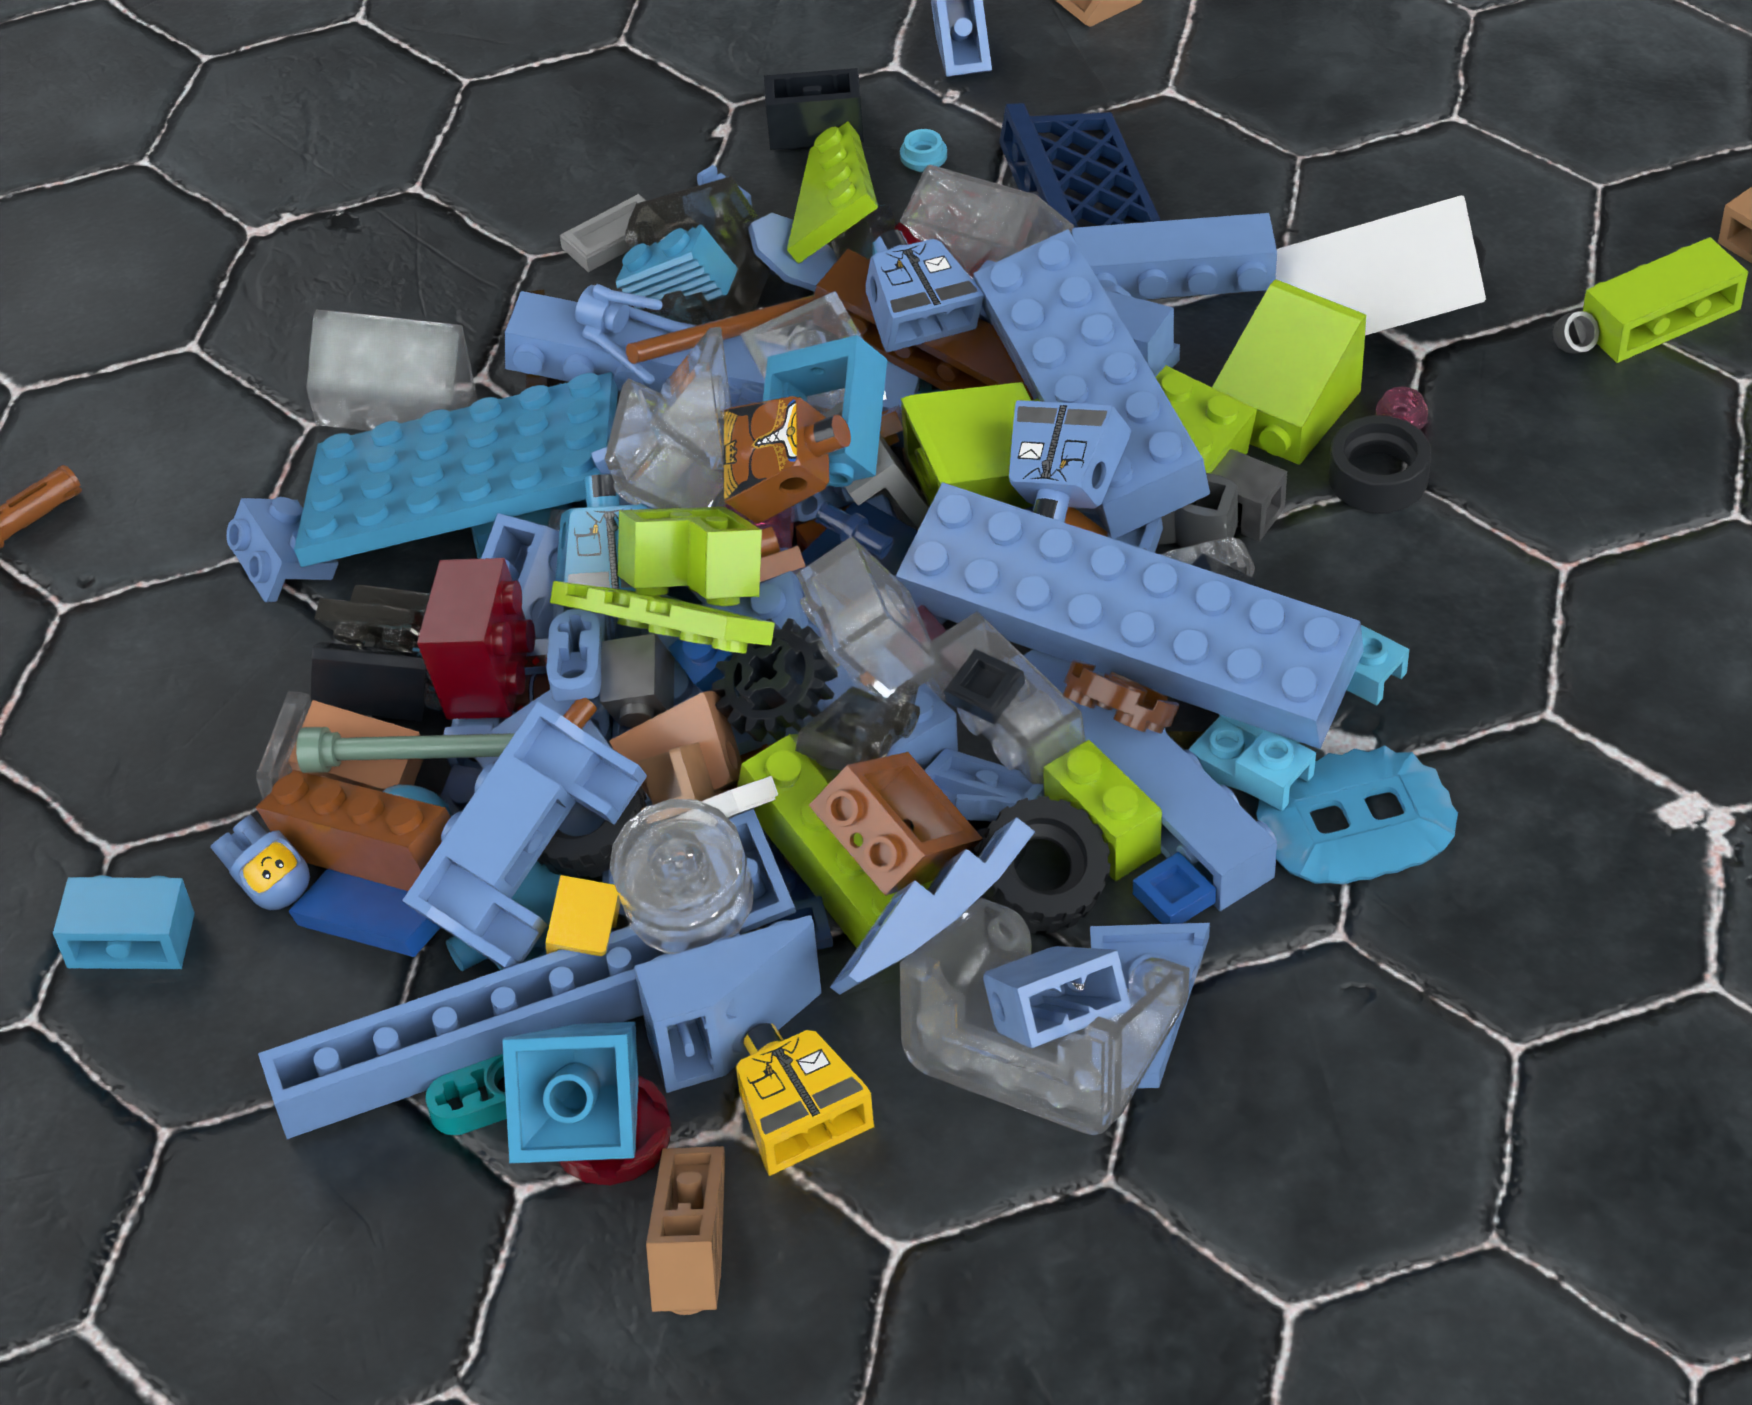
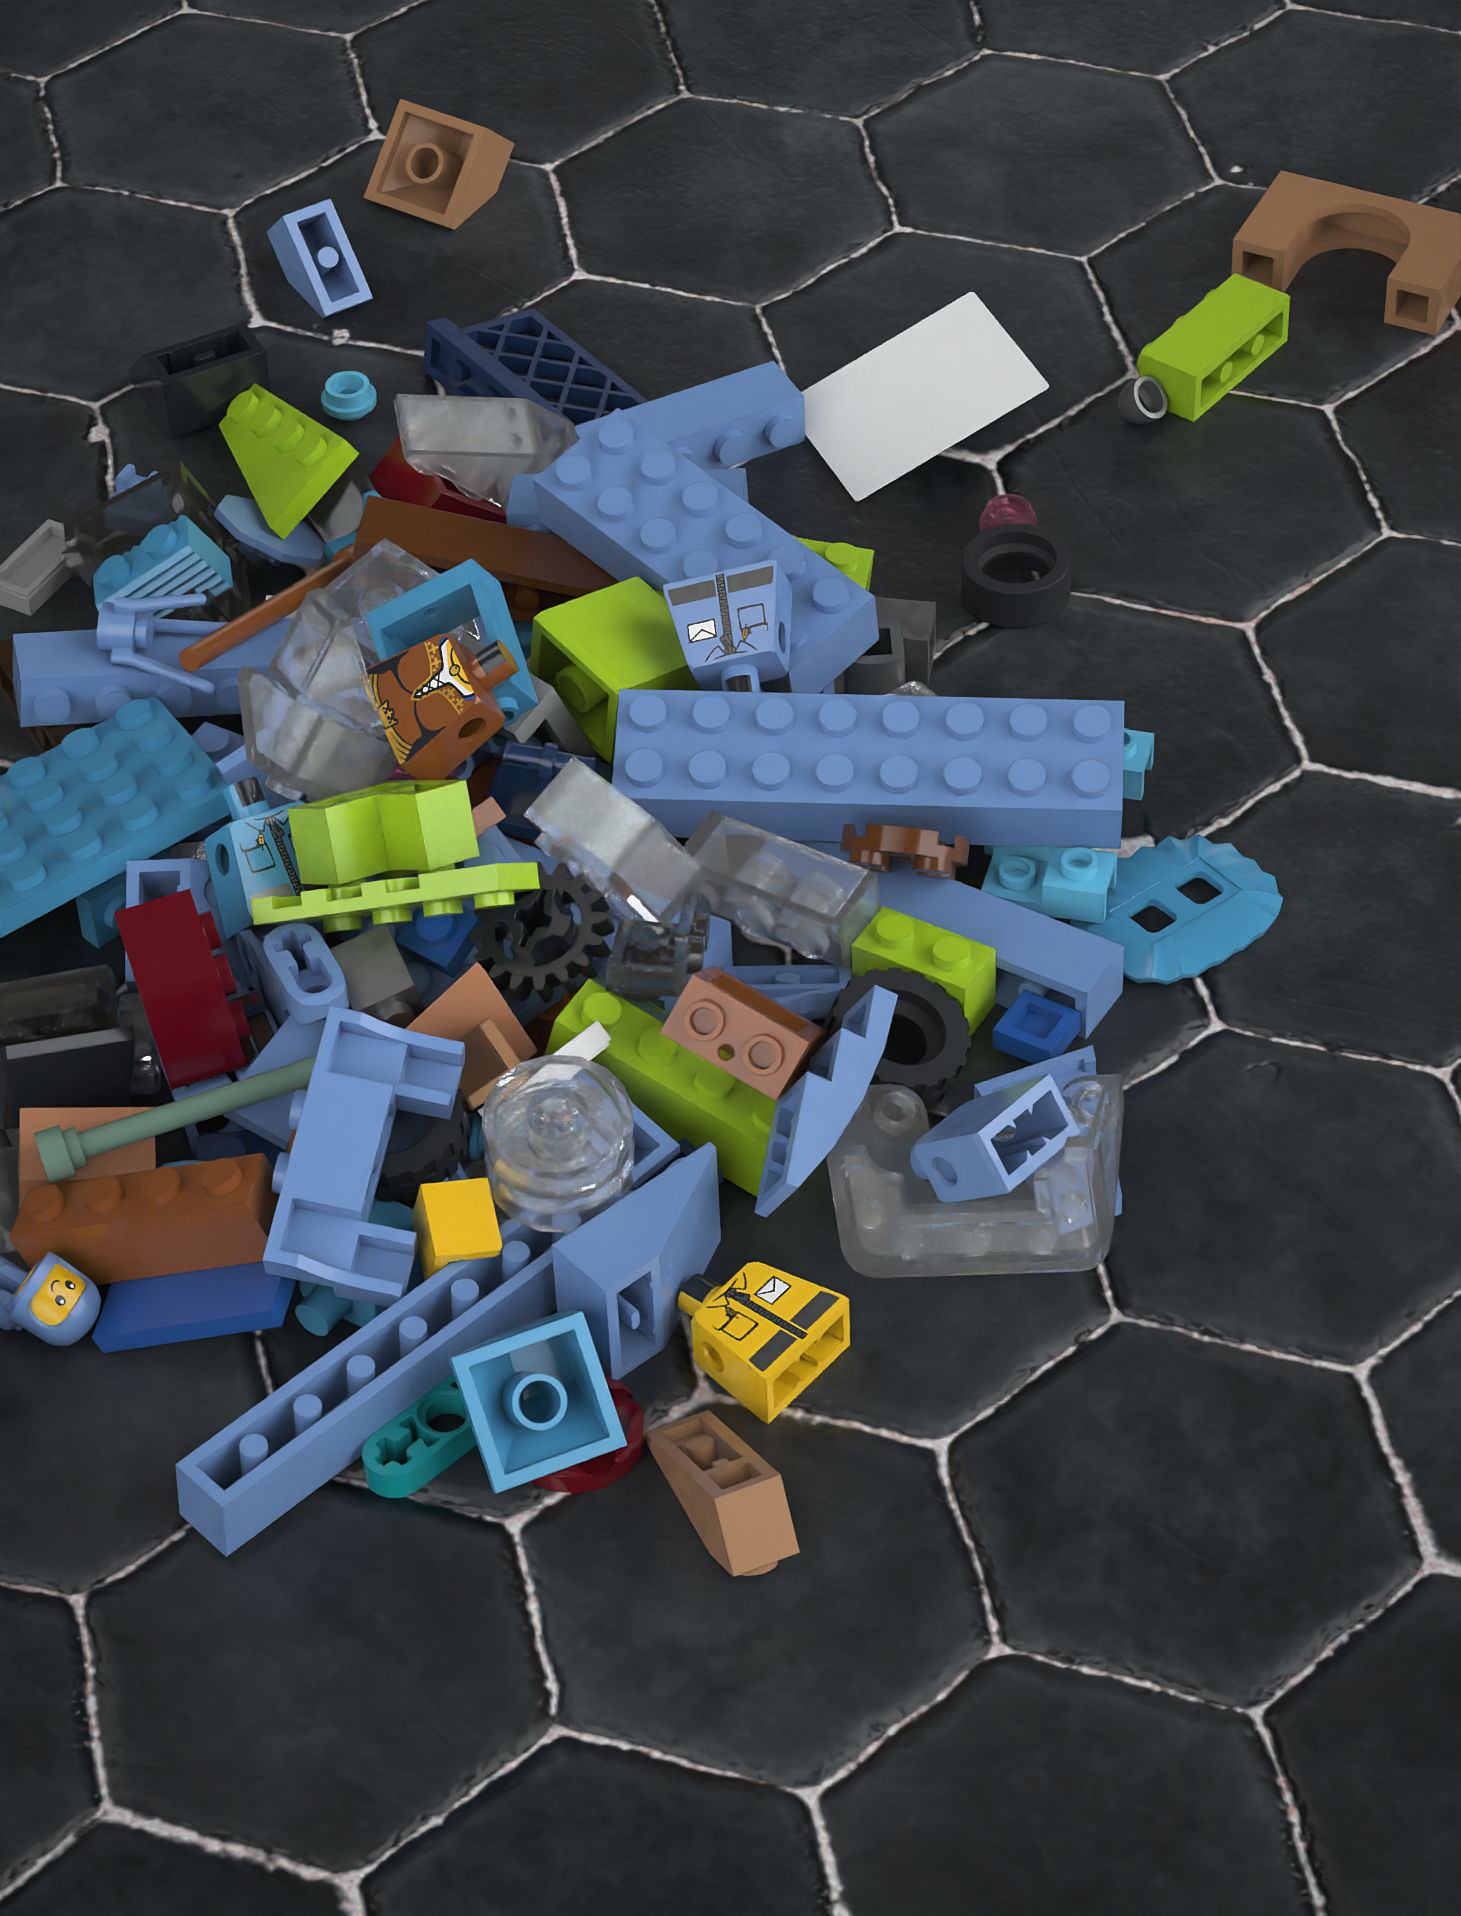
camera: 25 degrees left, 5 degrees down
(919, 292) = (475, 513): medium blue torso -> none
(984, 686) = (763, 877): black tile -> none
(1296, 367) = (890, 495): lime slope -> none

